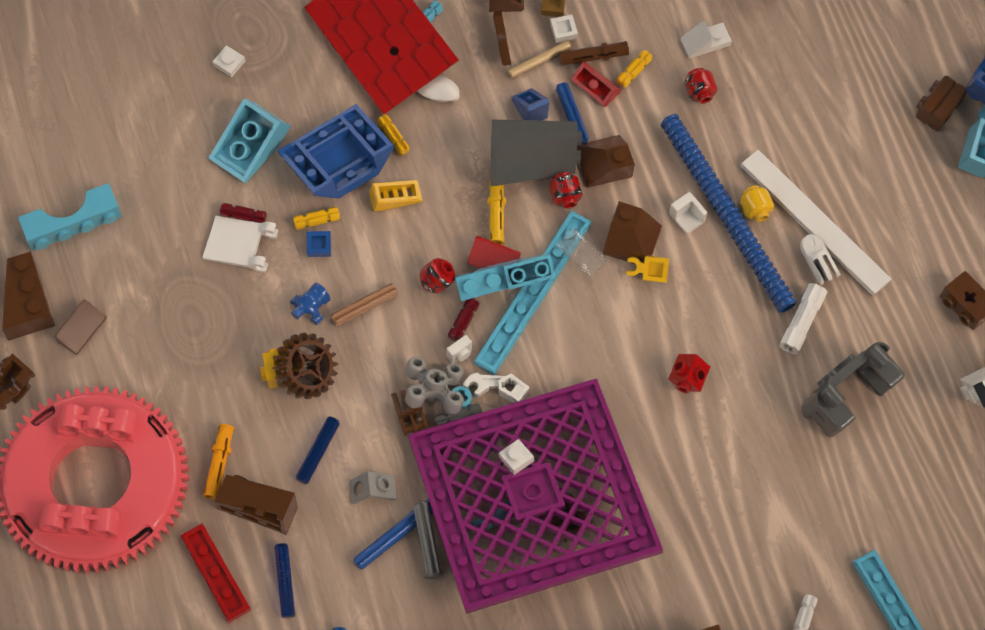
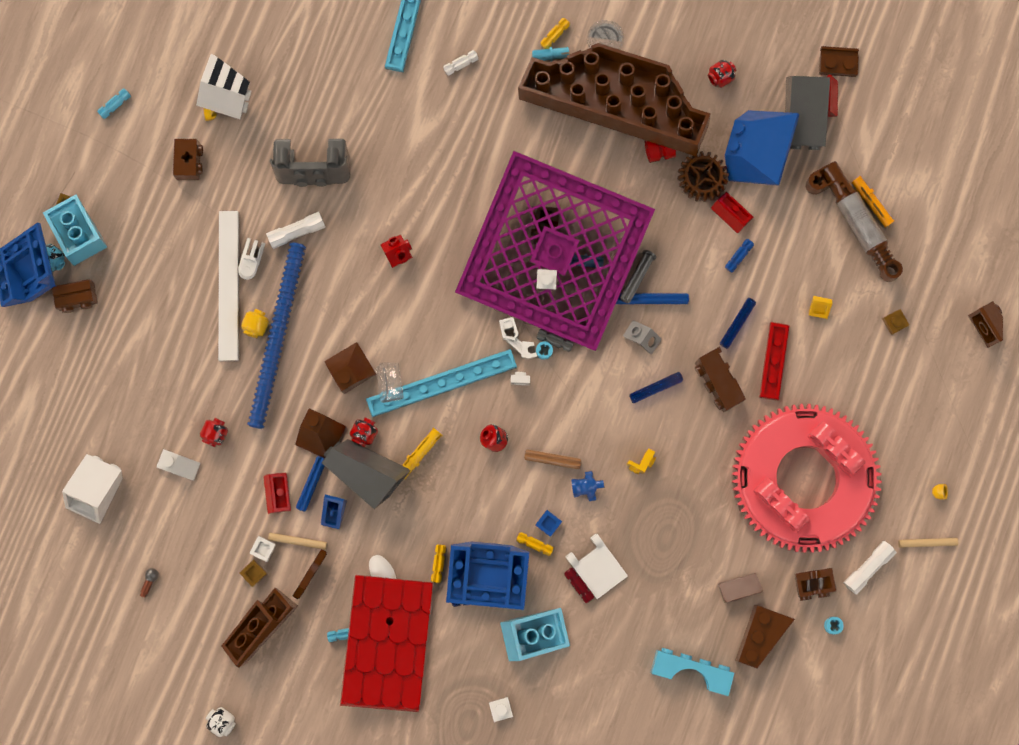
camera: 135 degrees left, 15 degrees up
(220, 450) = (718, 430): light orange pin -> none
(319, 378) = (635, 446): reddish brown gear -> none
(390, 203) = (486, 527): yellow slope -> none
(408, 415) = (583, 363): reddish brown arm -> none
(434, 385) = (550, 367): light grey gear -> none
(463, 319) = (500, 399): dark red axle -> none
(489, 253) = (448, 422): red slope -> none
(505, 276) = (453, 404): medium azure slope -> none
(603, 52) = (251, 509): reddish brown pin -> none
(634, 68) = (243, 482): yellow axle -> none
(653, 268) = (357, 336): yellow plate -> none
(688, 213) = (302, 354): white panel -> none

